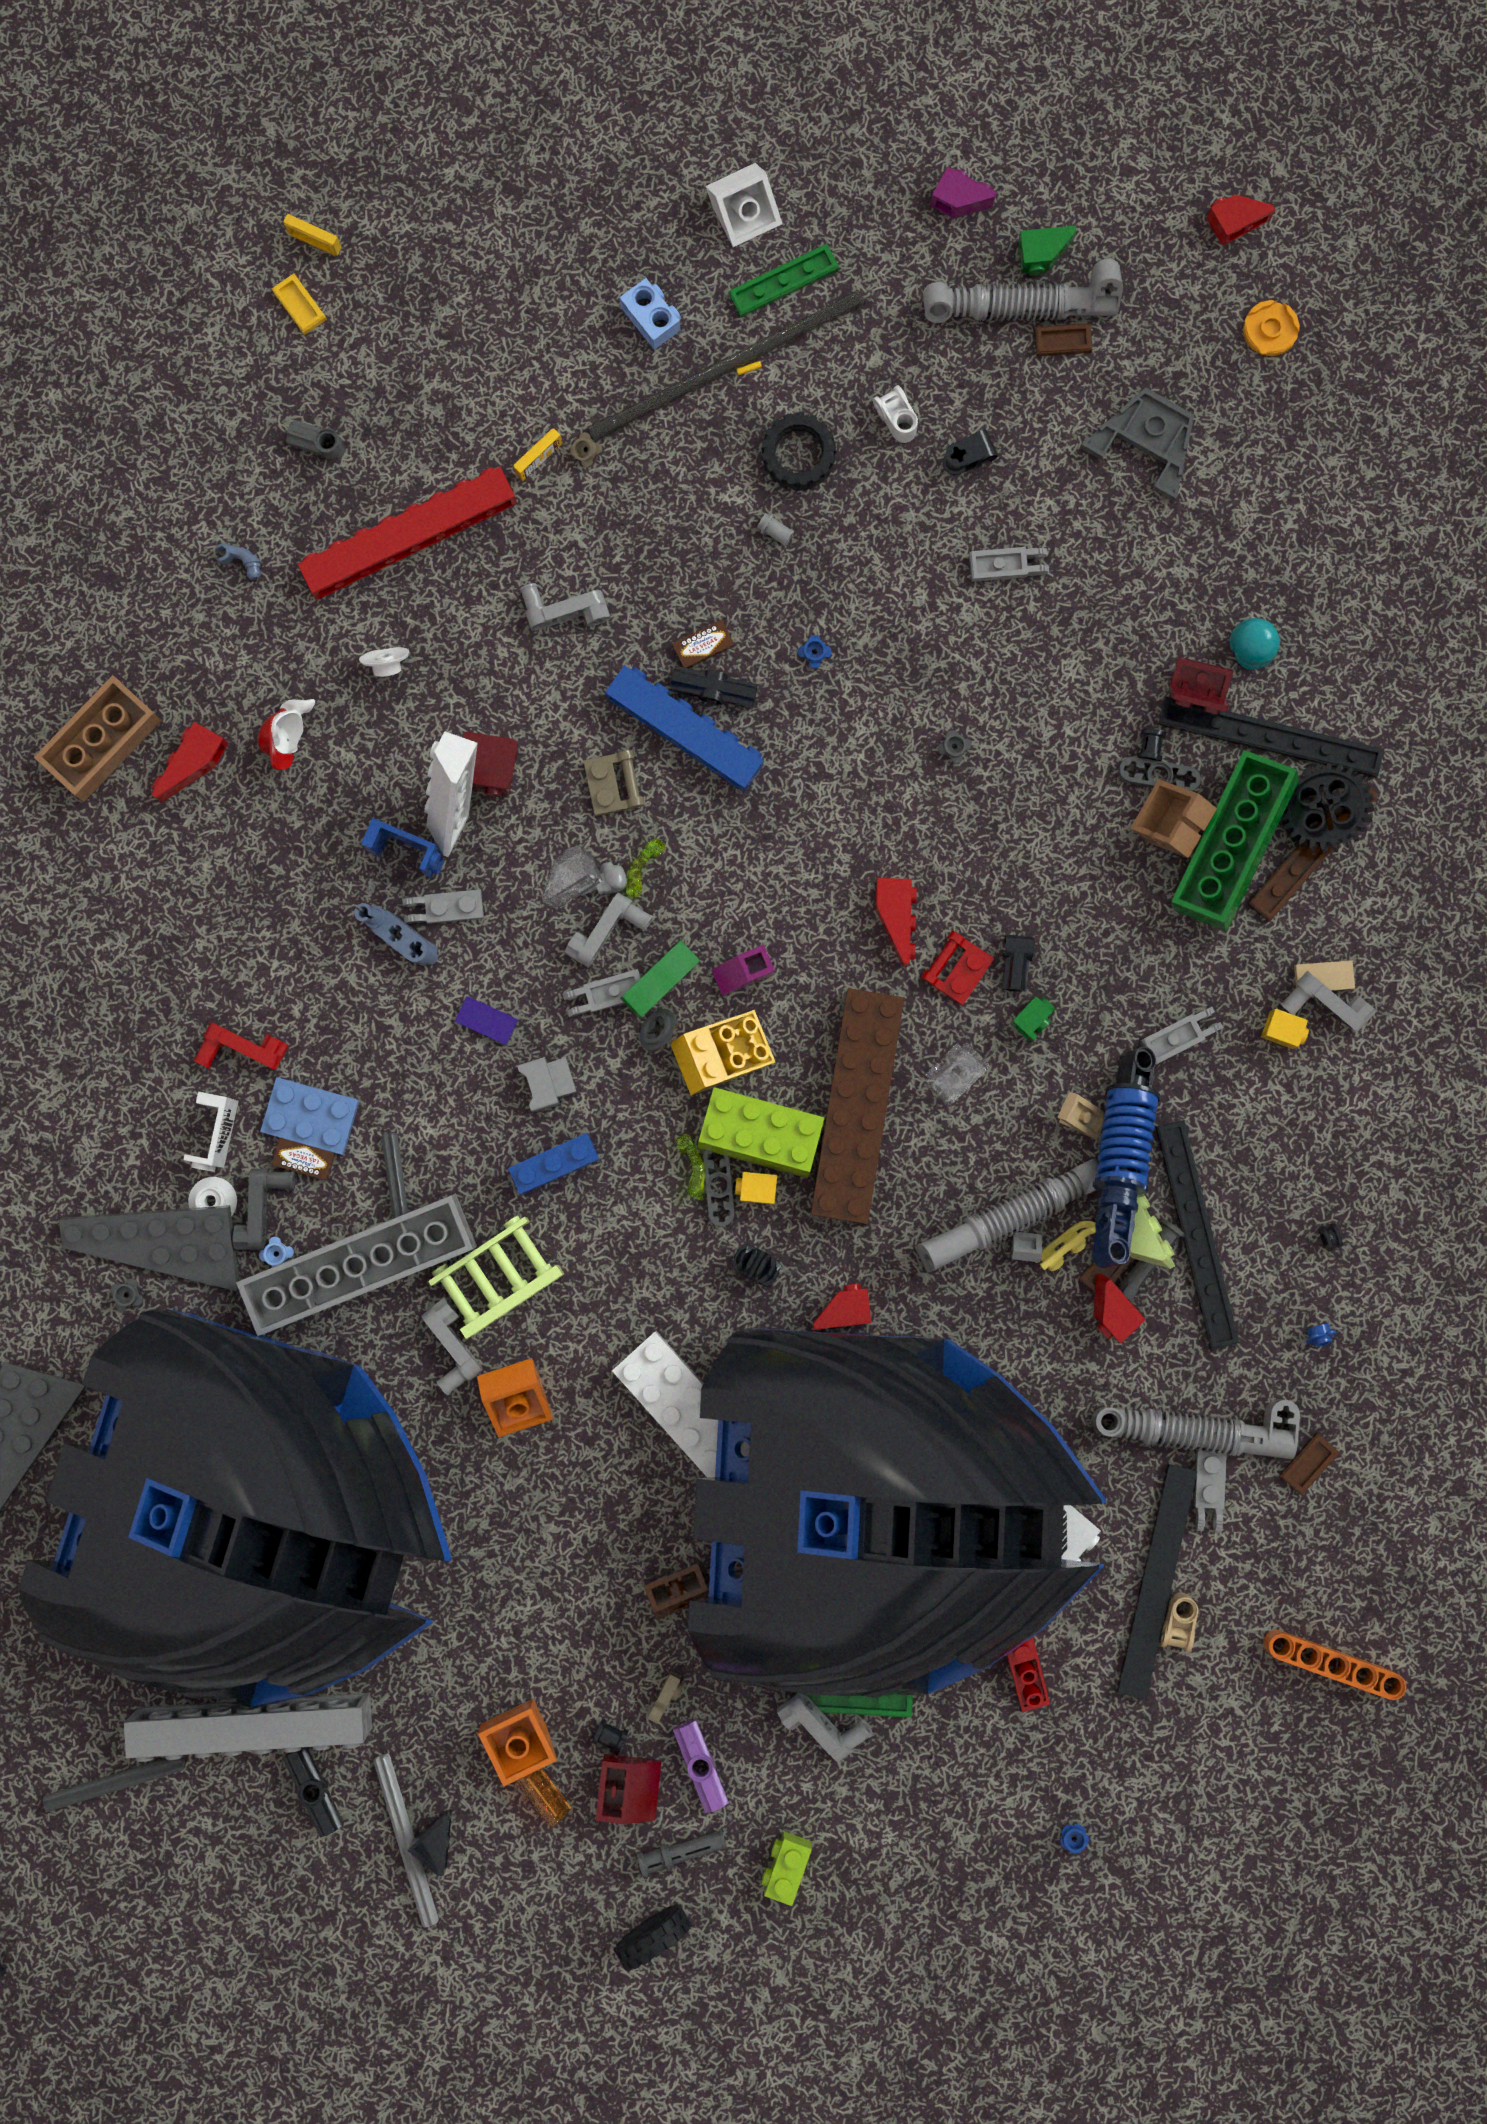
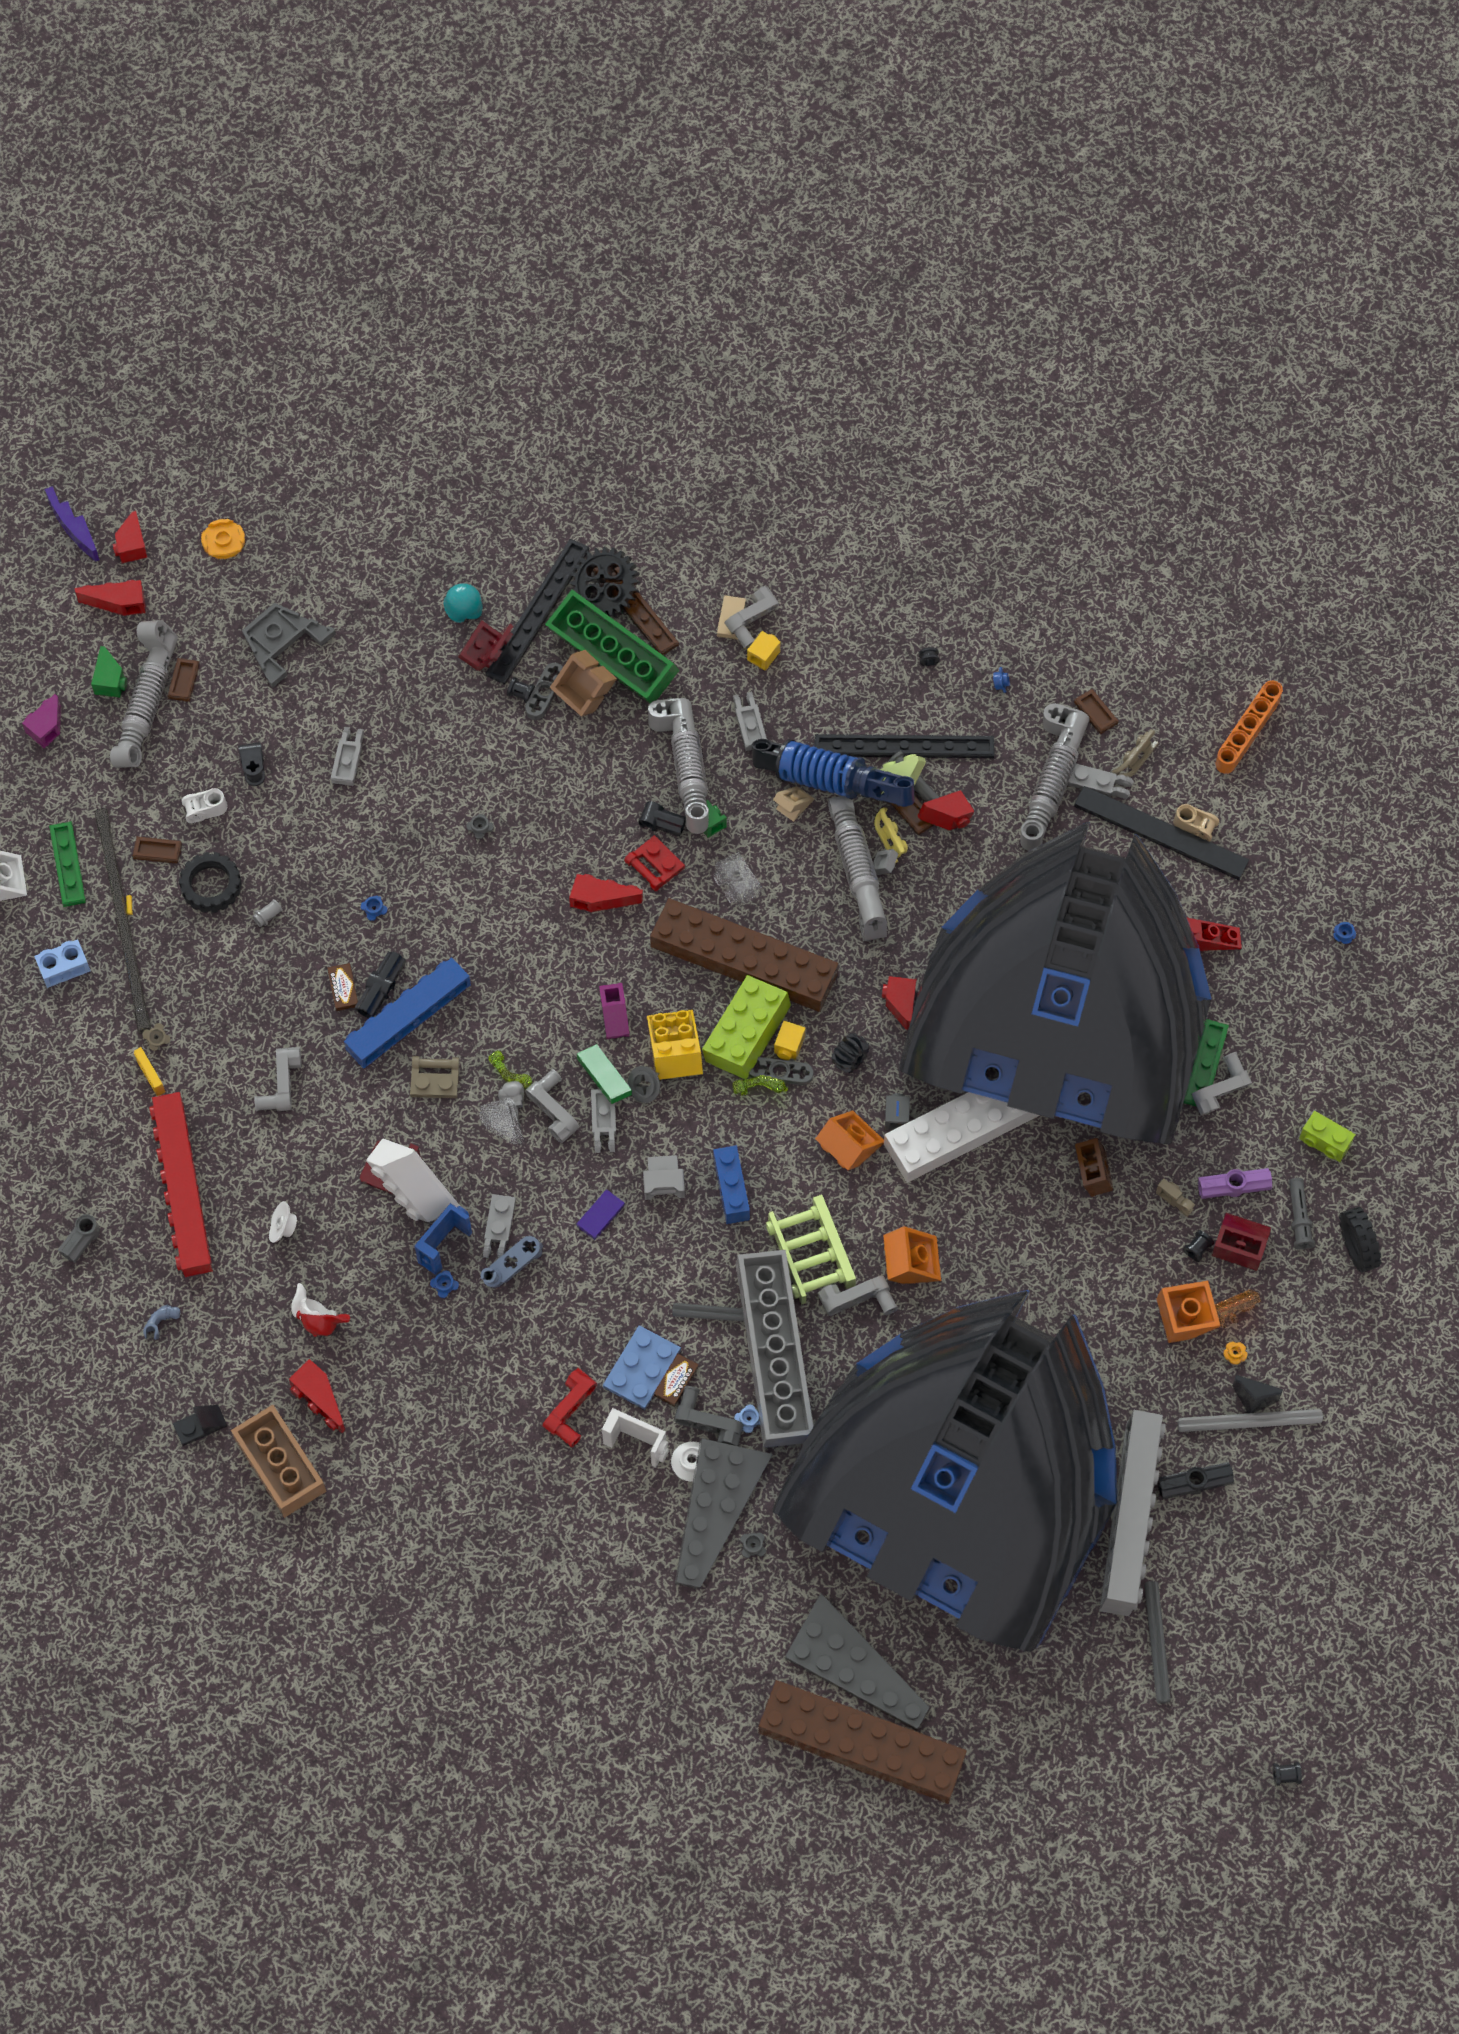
camera: 75 degrees left, 20 degrees down
(129, 640) = (200, 1424): none -> black slope
(351, 864) = (443, 1277): none -> blue plate
(485, 1814) = (1235, 1358): none -> light orange plate
(647, 1290) = (849, 1139): none -> orange slope
(696, 1338) = (896, 1111): none -> dark grey brick
(828, 377) = (157, 850): none -> reddish brown tile
(1126, 964) = (689, 757): none -> light grey piece
(1153, 231) = (119, 598): none -> red slope
(1237, 146) = (74, 527): none -> dark purple slope
(1252, 1523) = (1131, 757): none -> dark tan piece

